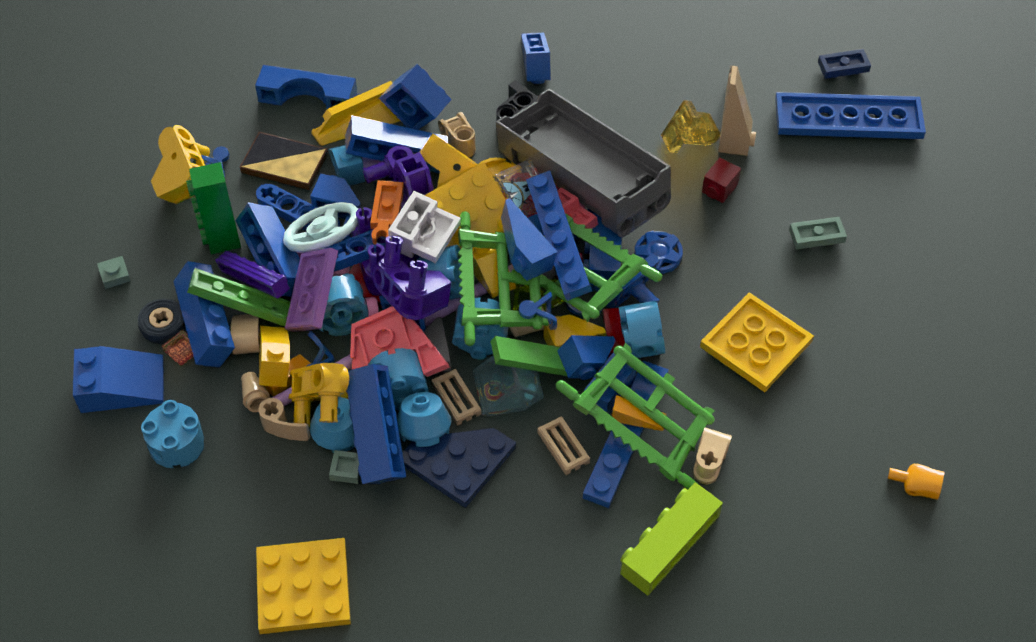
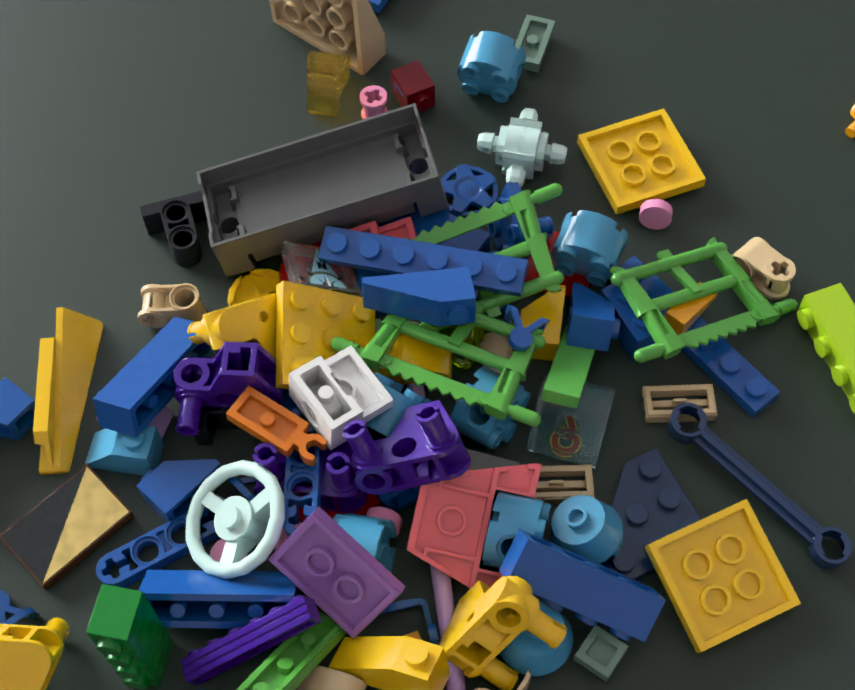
camera: 60 degrees left, 5 degrees up
(415, 98) = (98, 321): blue brick -> none
(436, 513) = (722, 575): none -> yellow plate
(521, 514) = (759, 486): none -> dark blue piece
(536, 57) = (110, 171): blue slope -> none
(695, 161) = (373, 101): none -> bright pink bush
(711, 263) = (522, 147): none -> light aqua piece
(713, 368) = (655, 214): none -> bright pink tile
(768, 212) = (491, 65): none -> dark azure brick

